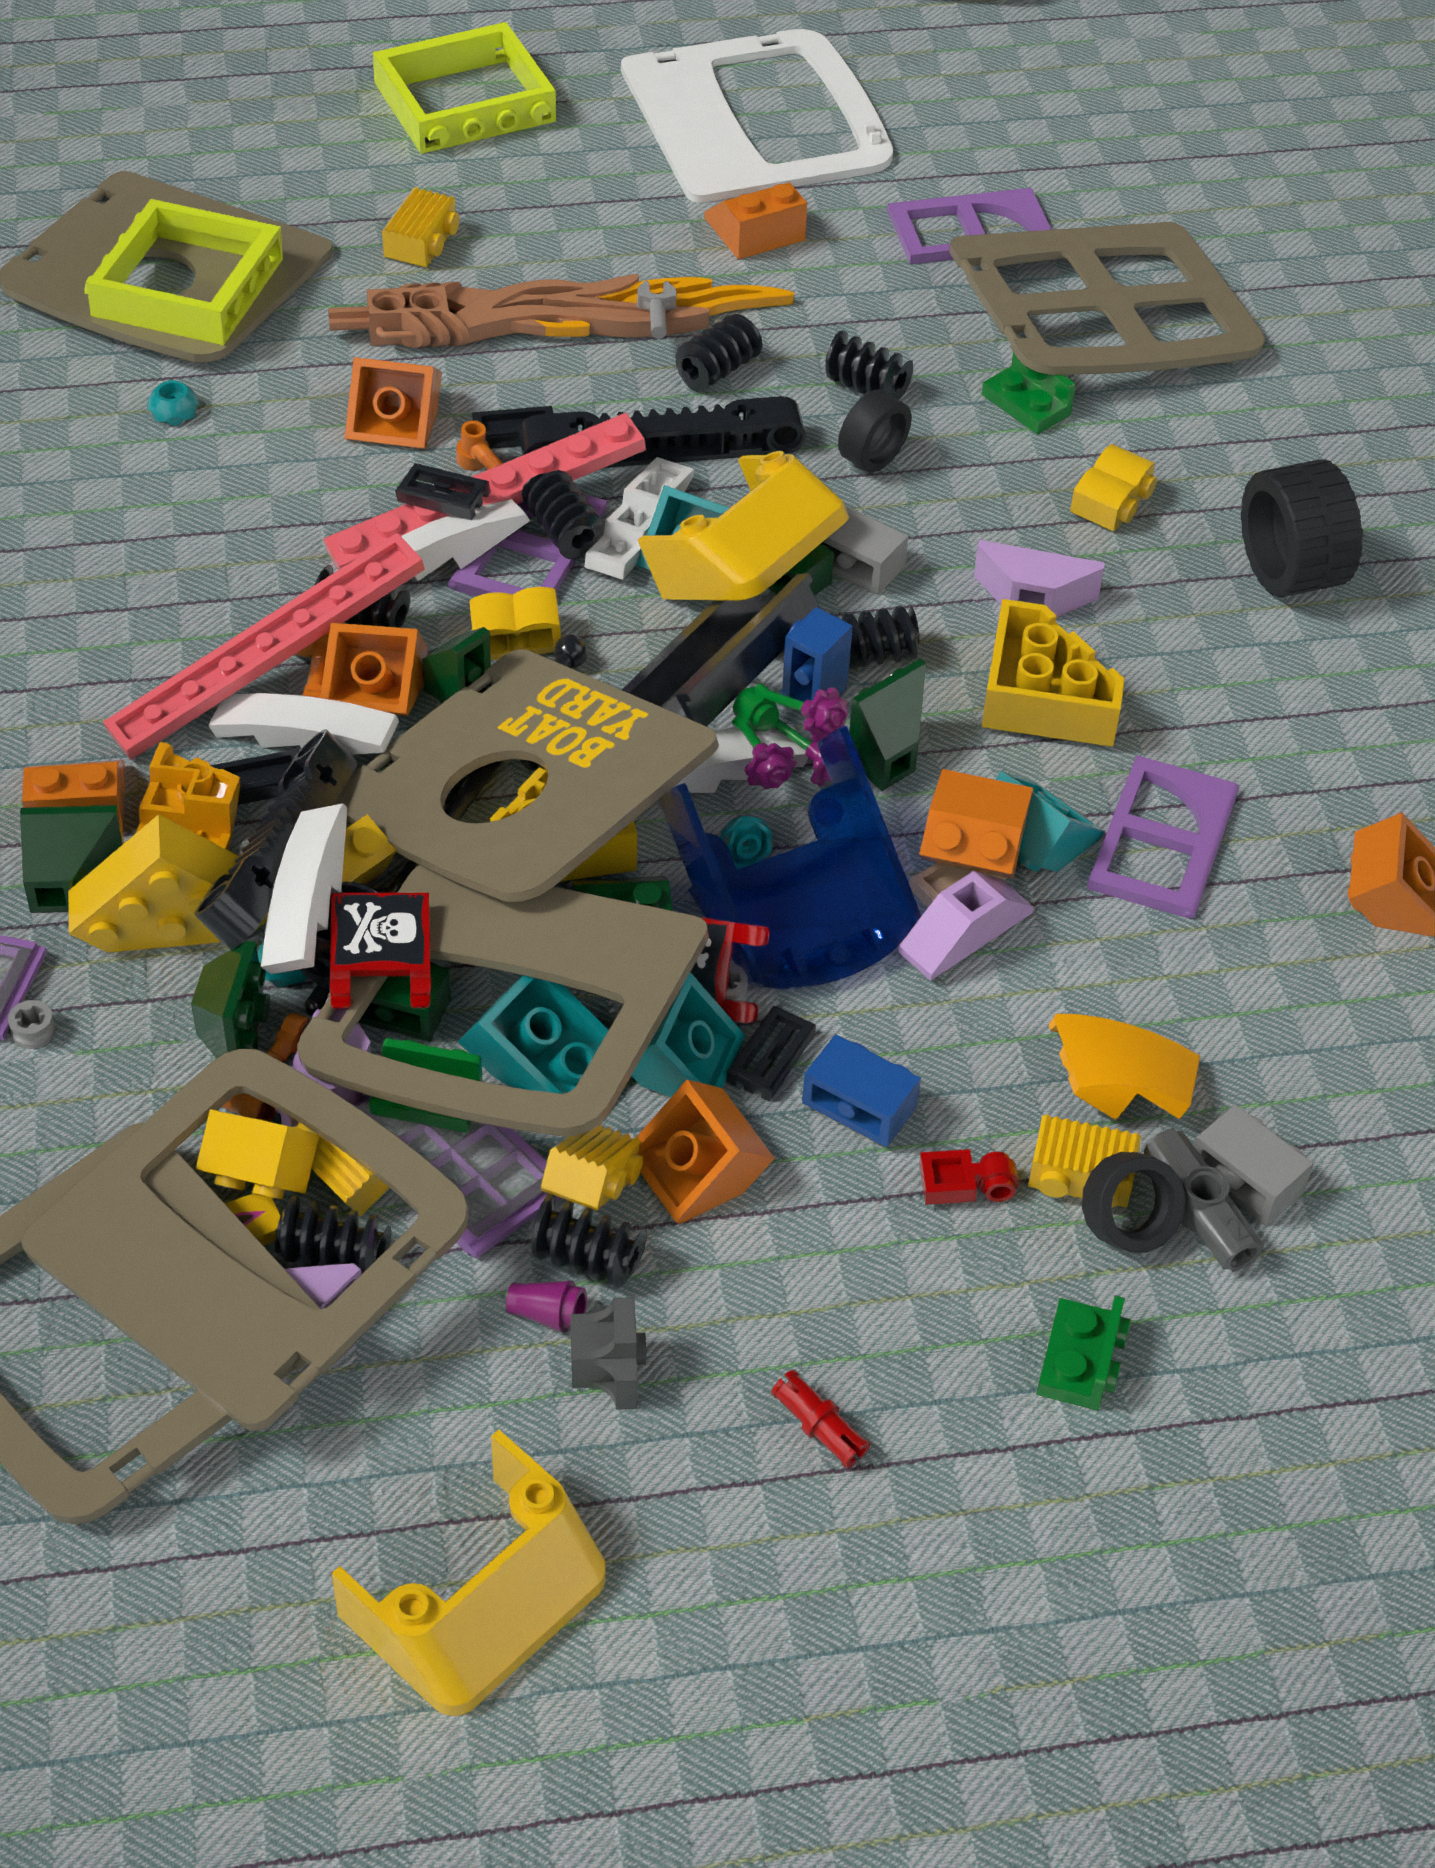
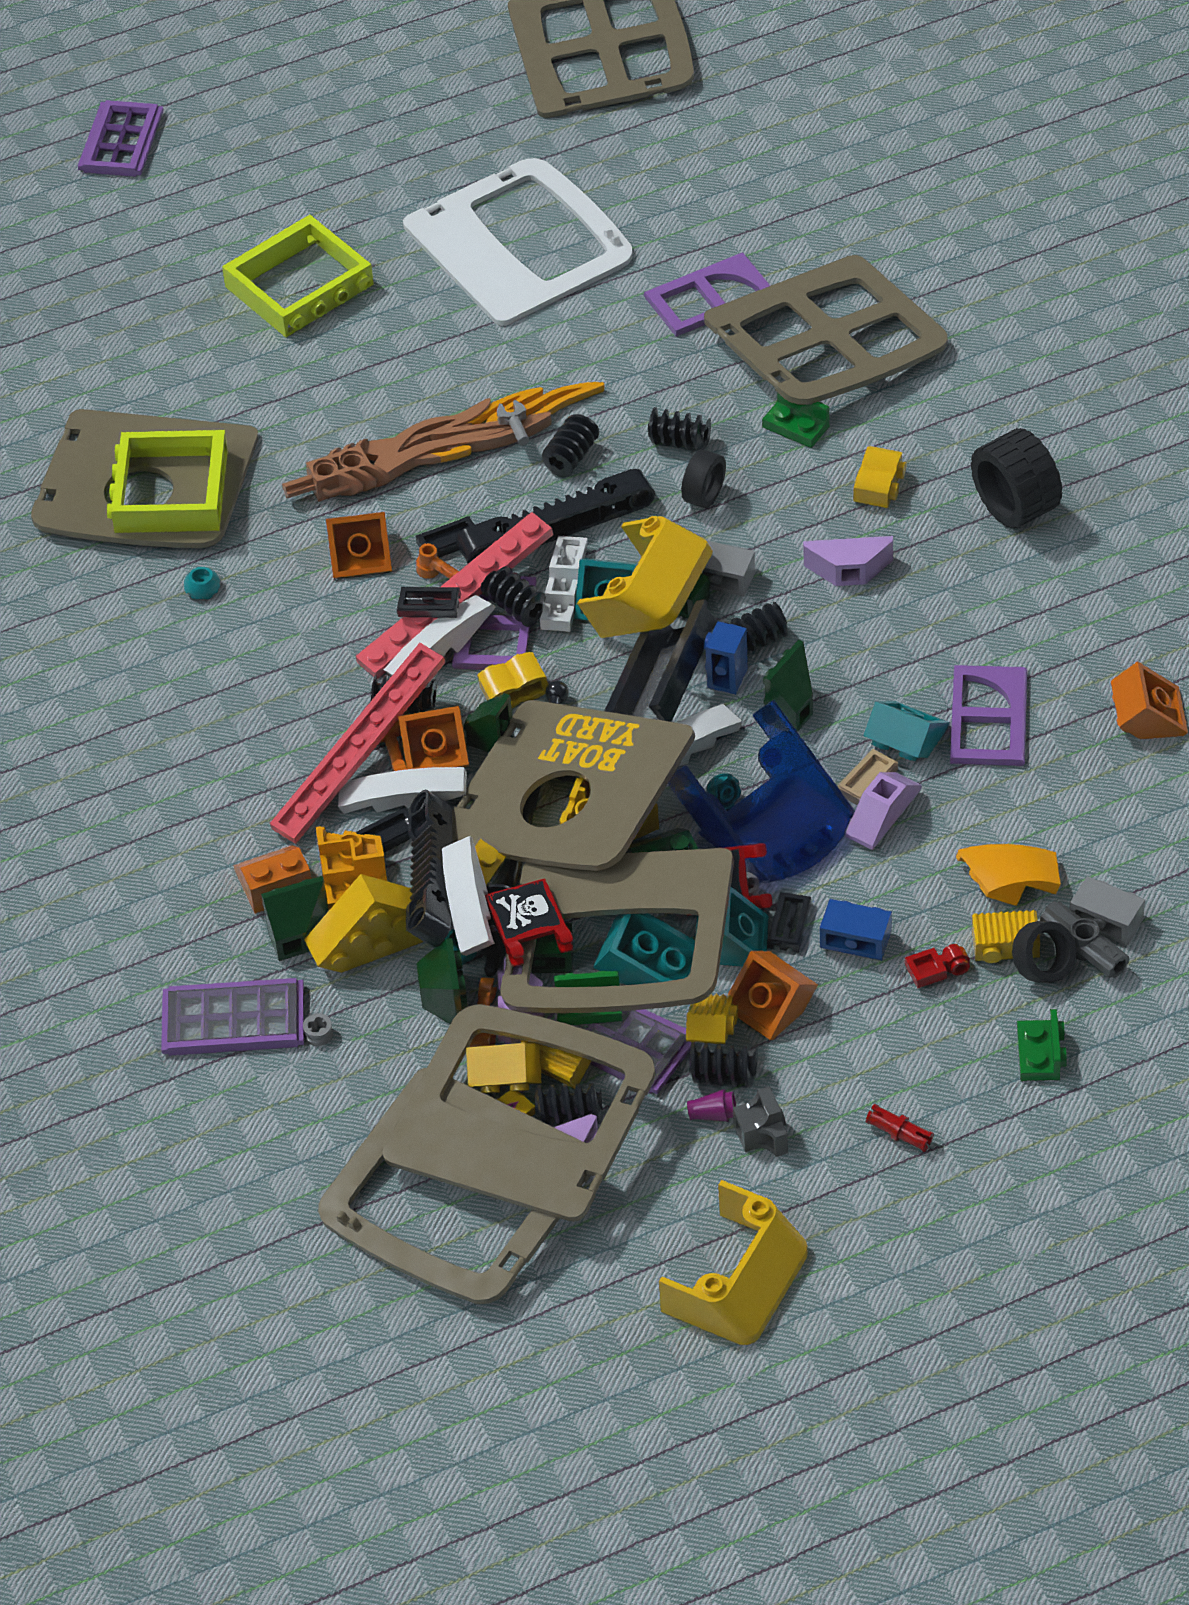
camera: 10 degrees left, 0 degrees up
(420, 227) = (317, 400): yellow brick -> none
(760, 220) = (558, 331): orange slope -> none
(772, 764) = (724, 737): magenta plant -> none
(976, 823) = (870, 740): orange slope -> none
(1049, 680) = (881, 629): yellow brick -> none

